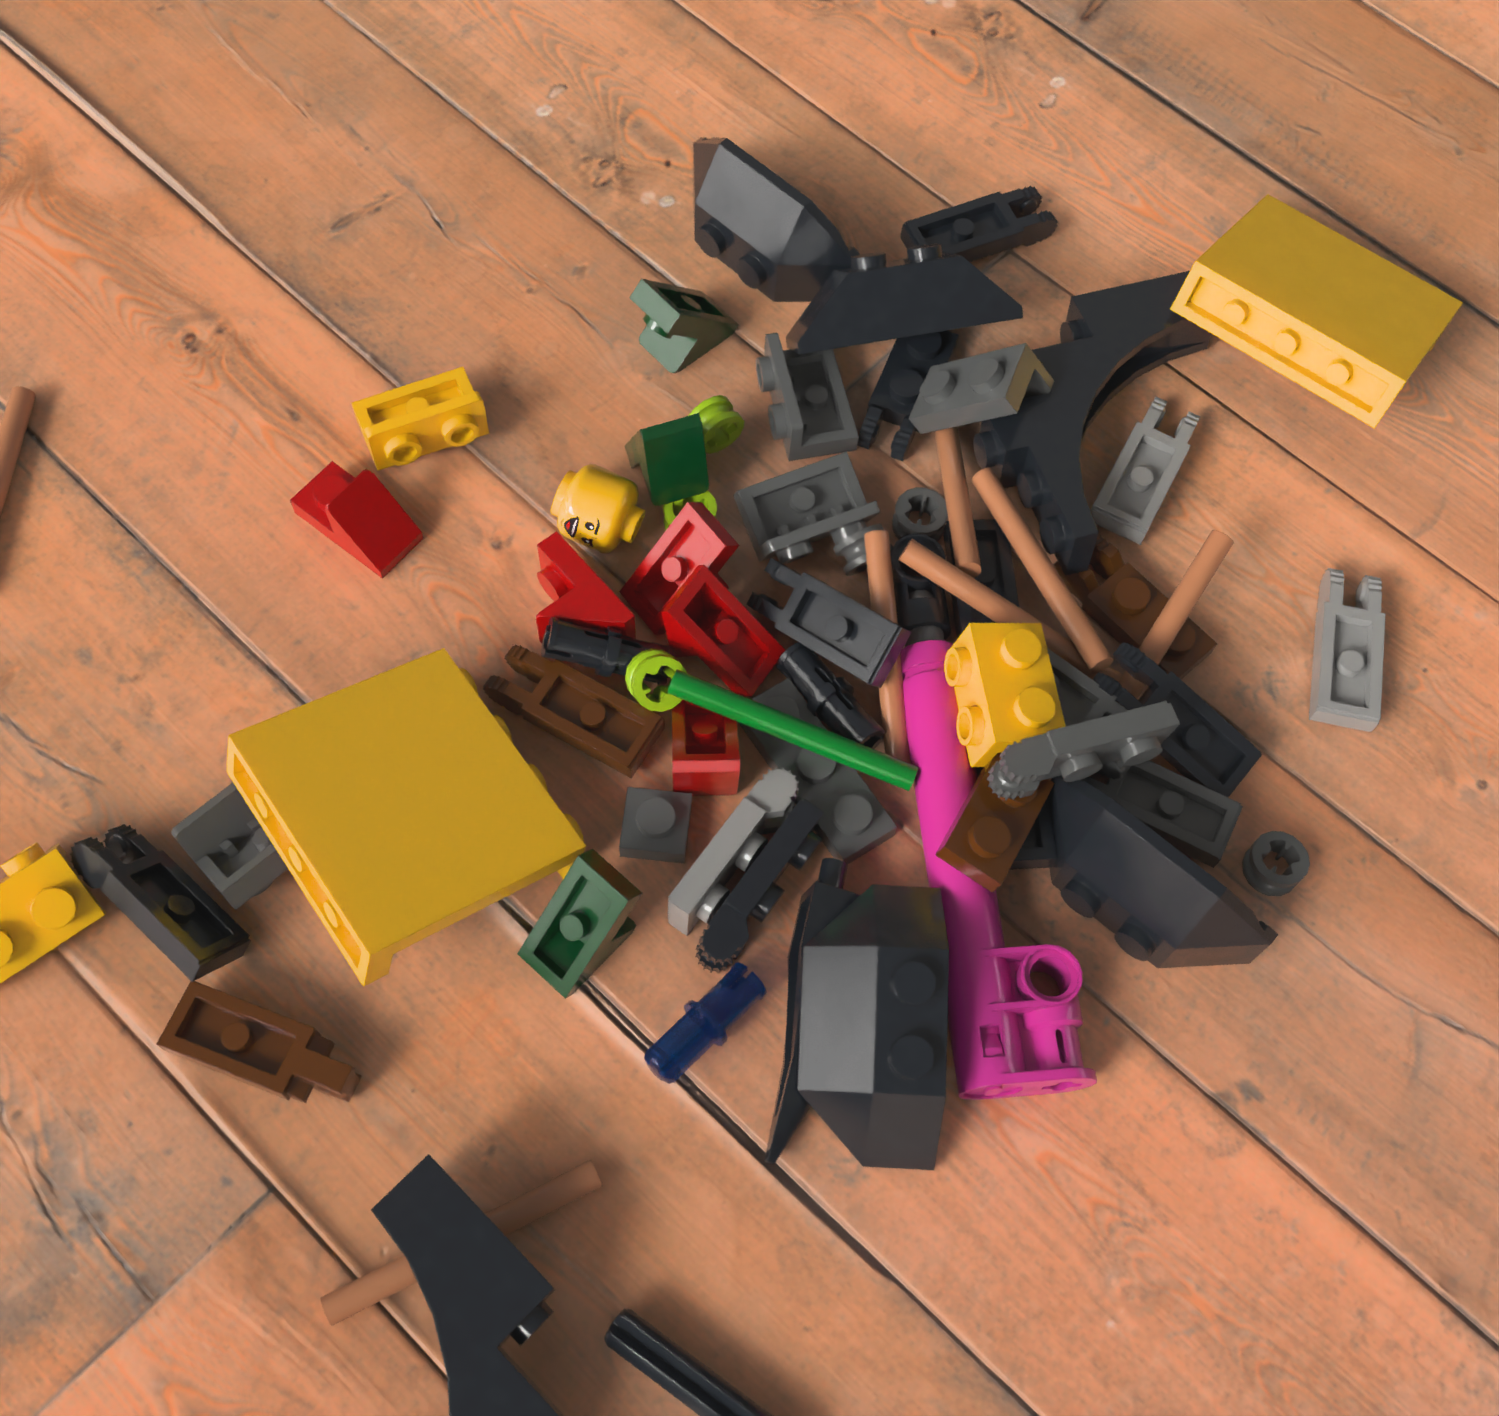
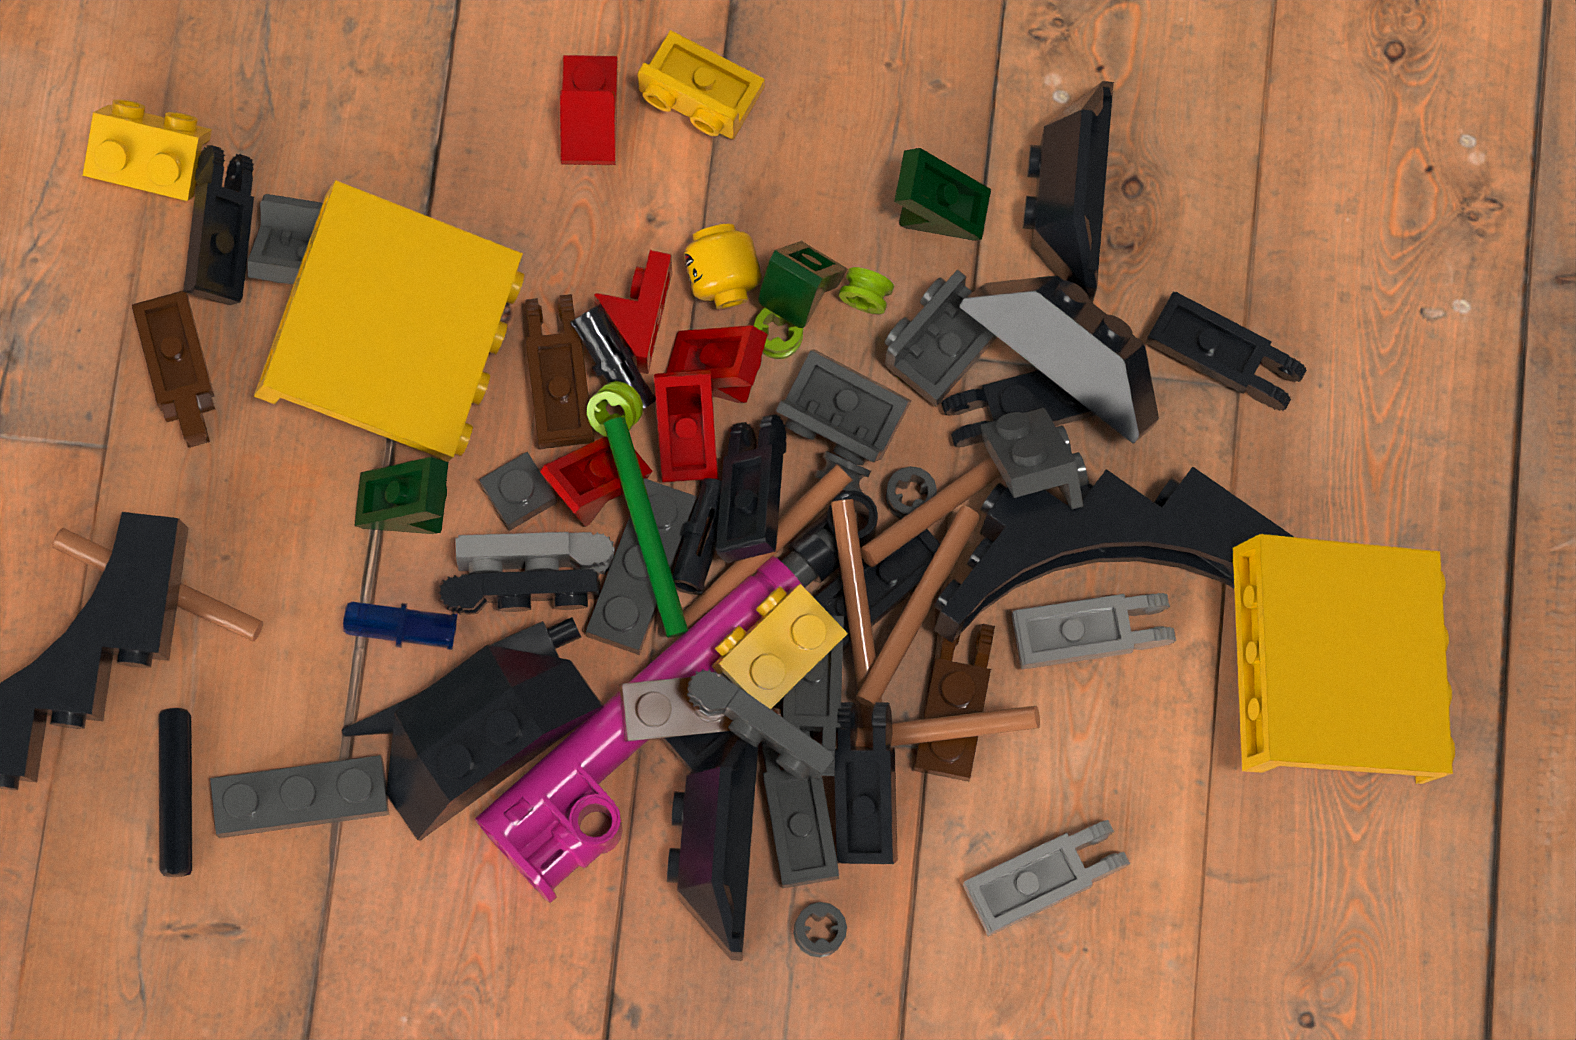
camera: 55 degrees right, 10 degrees up
(802, 1260) = (299, 796): none -> dark grey plate

